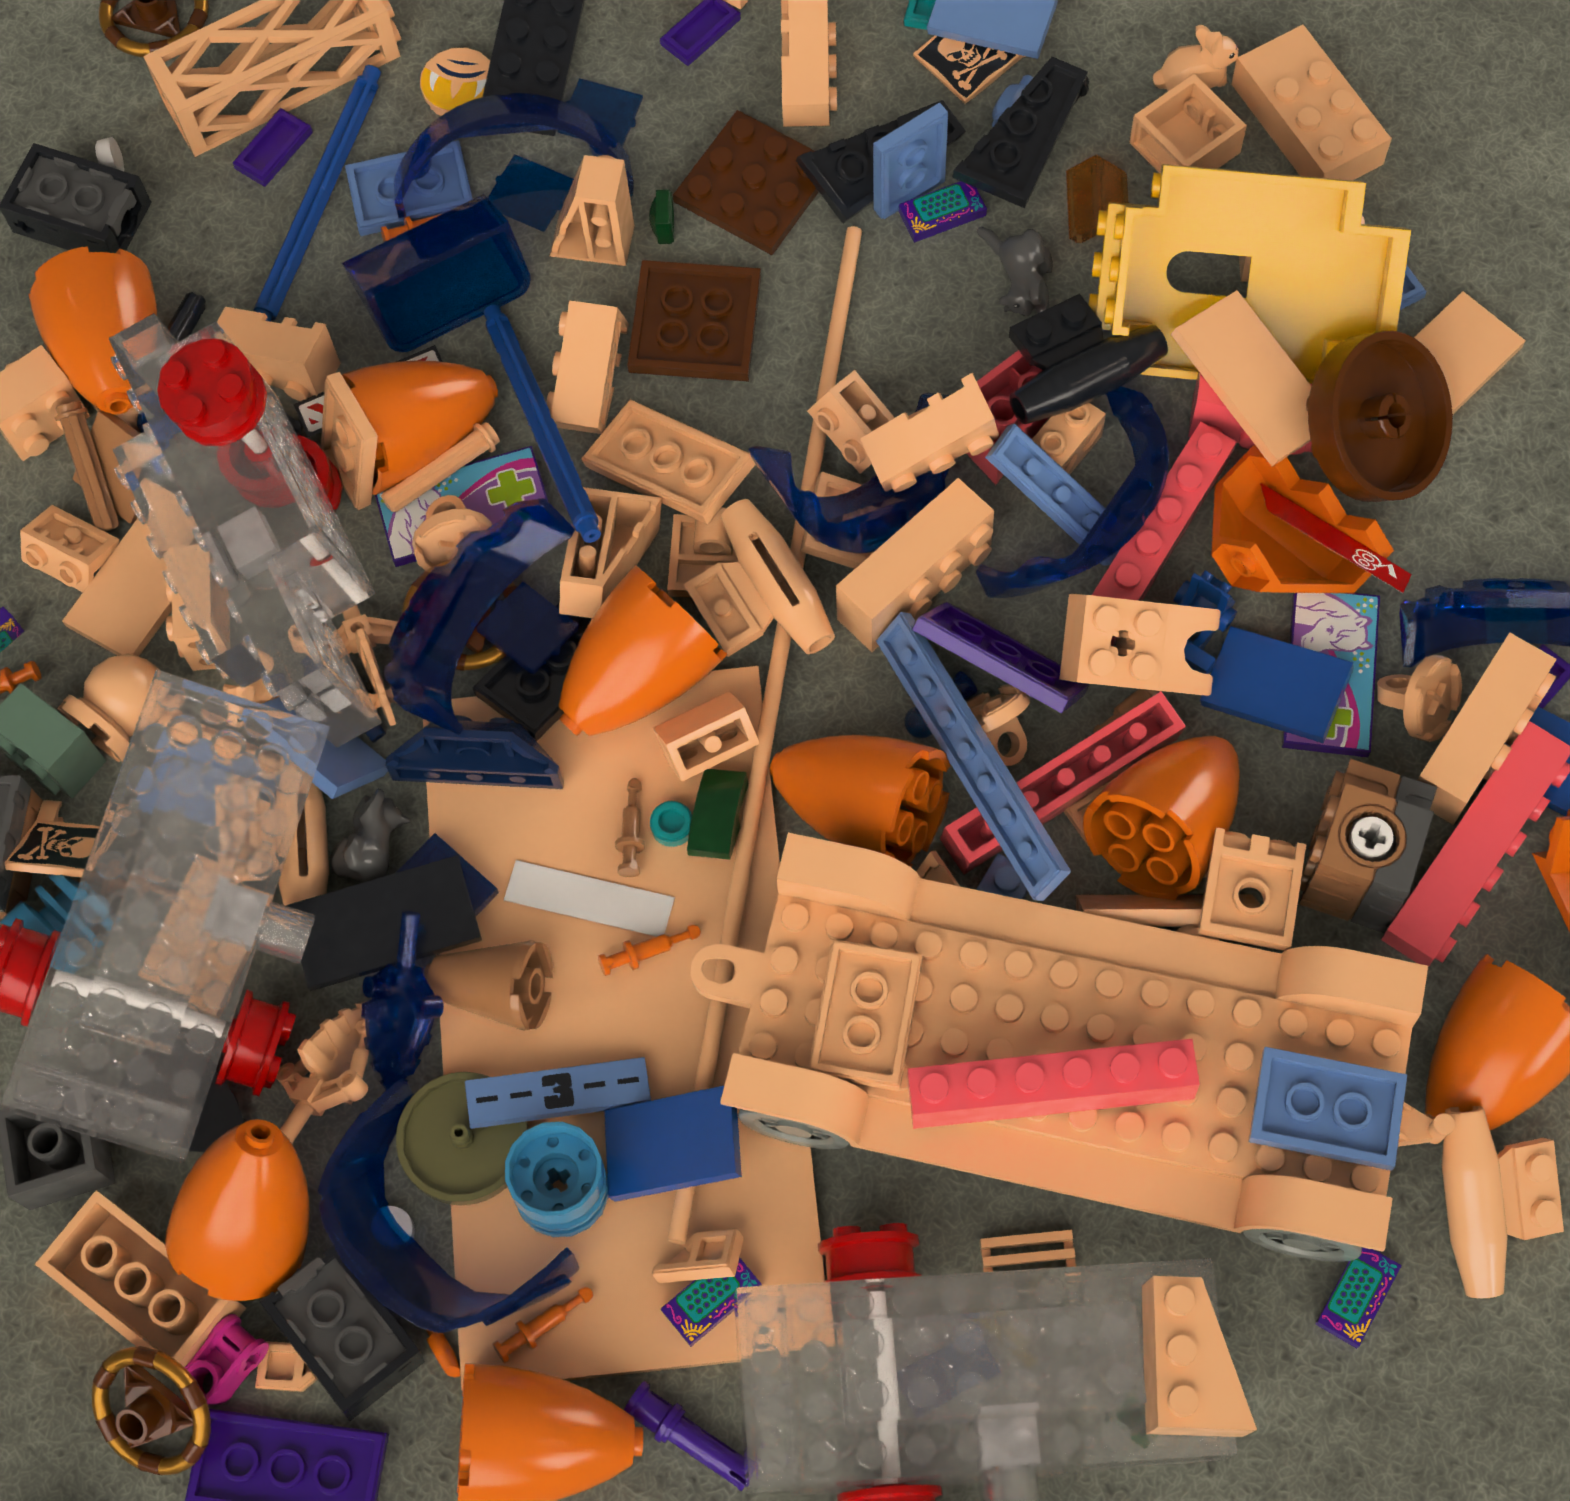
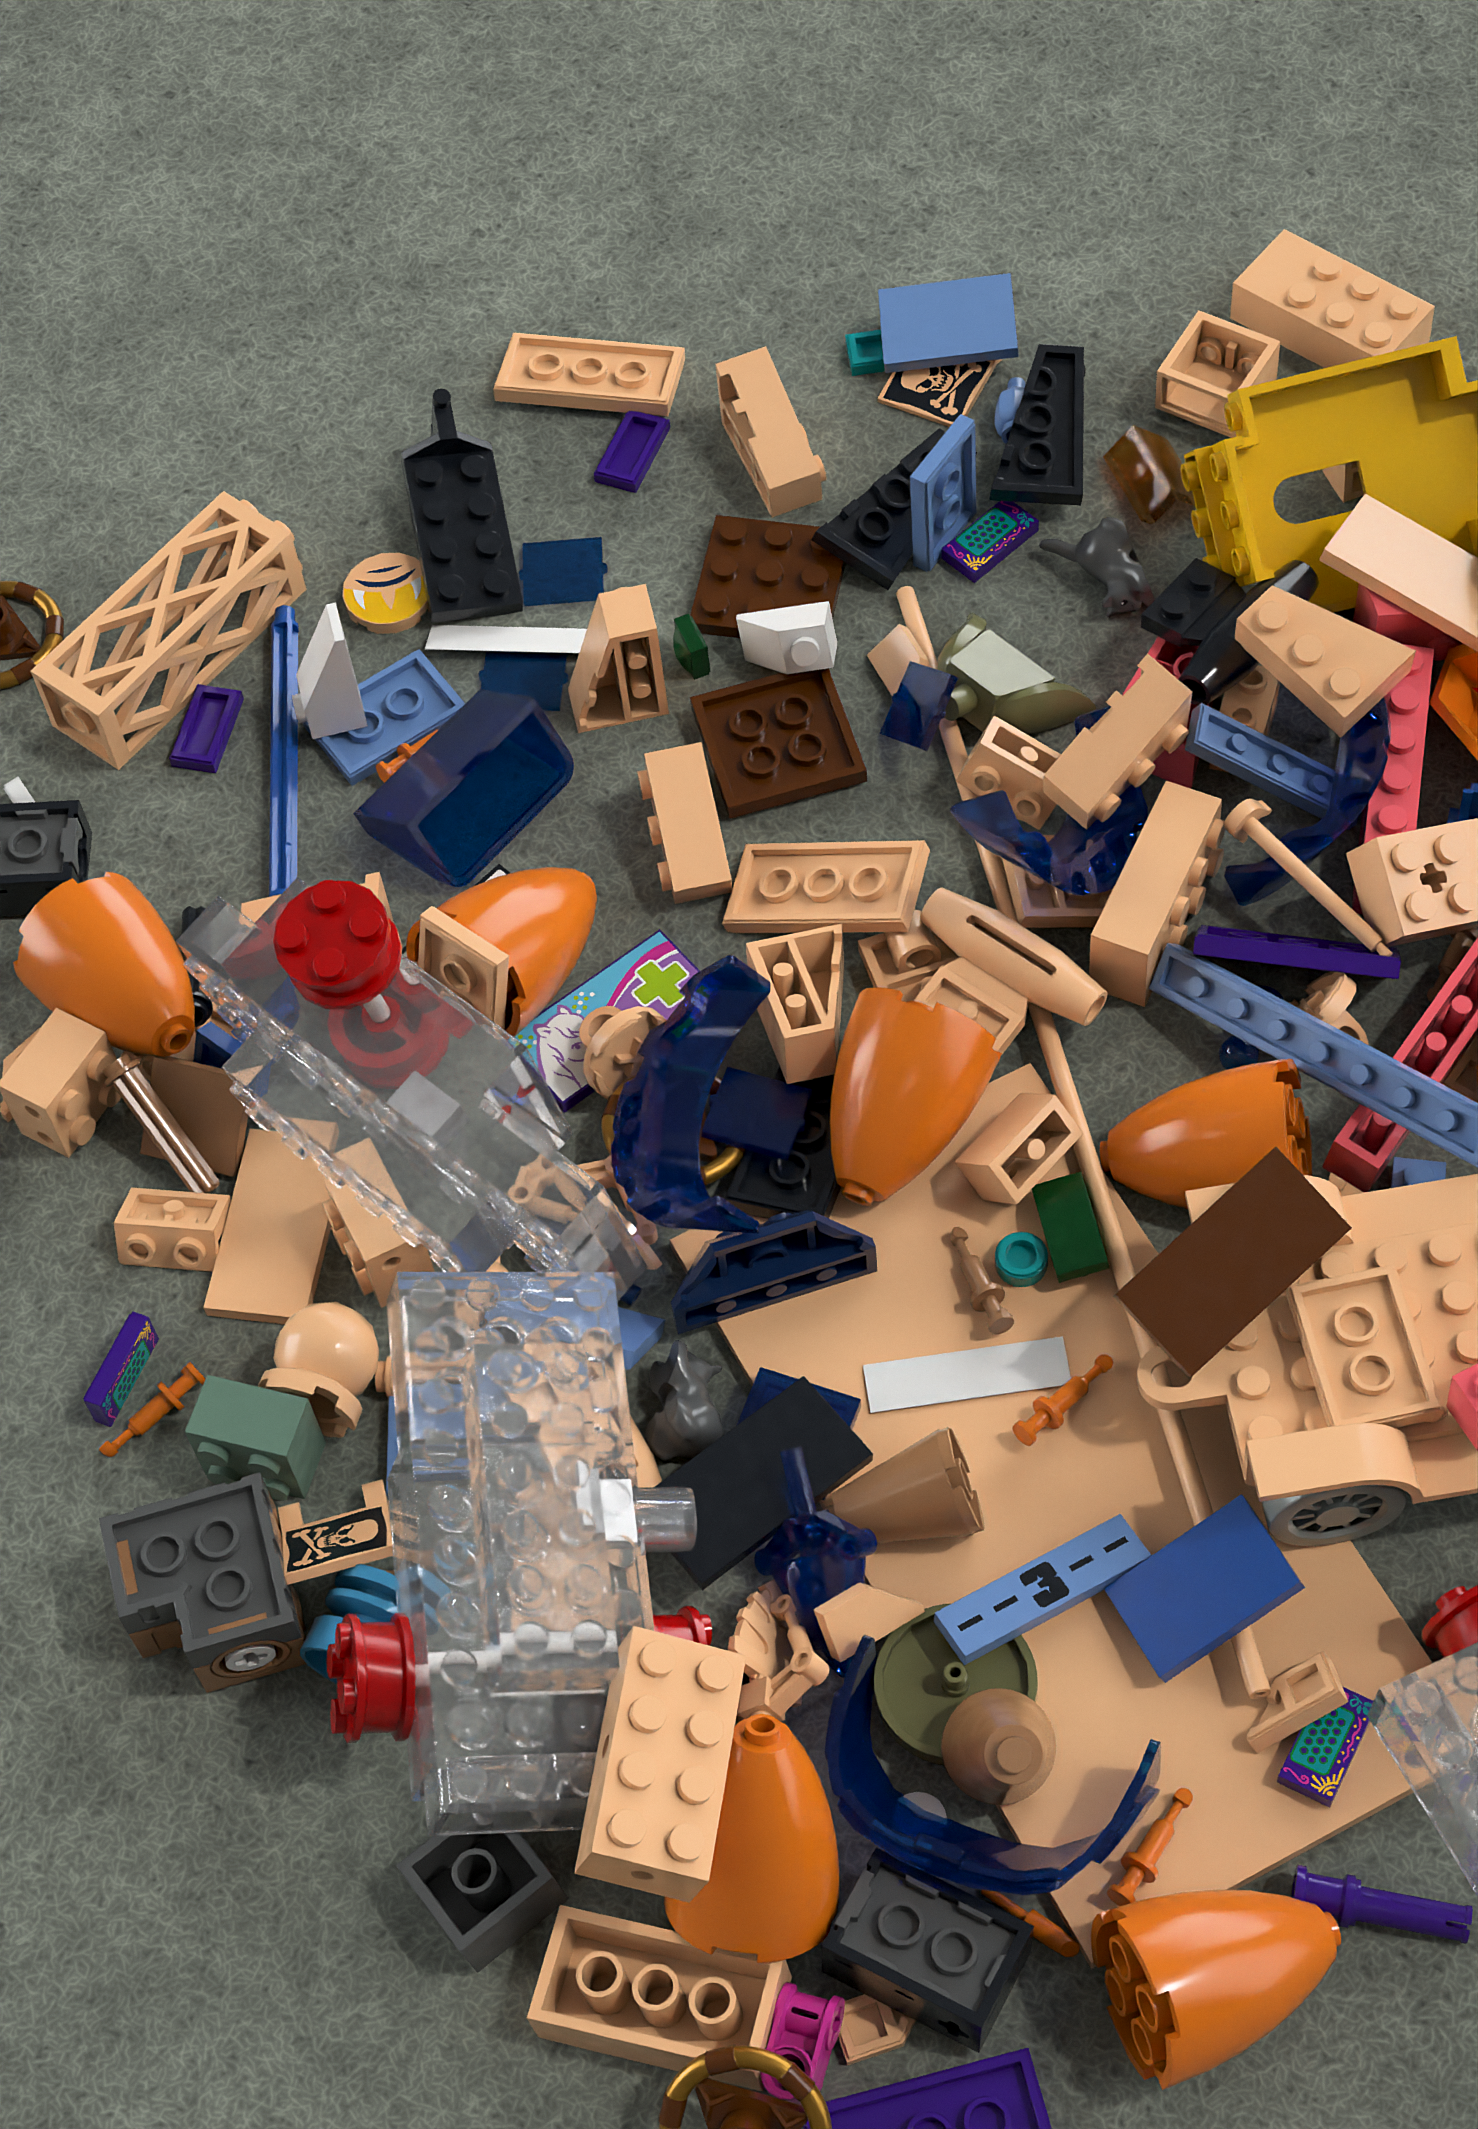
camera: 20 degrees left, 10 degrees down
(177, 1129) = (661, 1765): none -> light nougat brick
(367, 149) = (327, 681): none -> white slope
(413, 1061) = (860, 1612): none -> light nougat tile
(464, 1202) = (998, 1746): none -> medium nougat cone
(476, 443) = (603, 939): light nougat axle -> none
(503, 116) = (451, 608): clear blue windscreen -> none
(527, 156) = (505, 639): none -> white sticker
(542, 425) = (669, 895): blue piece -> none
(552, 1154) = (1093, 1647): dark azure wheel -> none
(741, 239) = (789, 638): none -> white slope
(794, 904) = (1232, 1262): none -> reddish brown tile
(809, 335) = (918, 705): none -> clear blue piece
(818, 294) = (893, 656): none -> light nougat tile
(882, 340) = (1004, 683): none -> olive torso
(1006, 536) = (1245, 821): none -> light nougat piece
(1124, 423) = (1322, 657): none -> light nougat wedge
(1206, 60) = (1179, 306): light nougat animal -> none

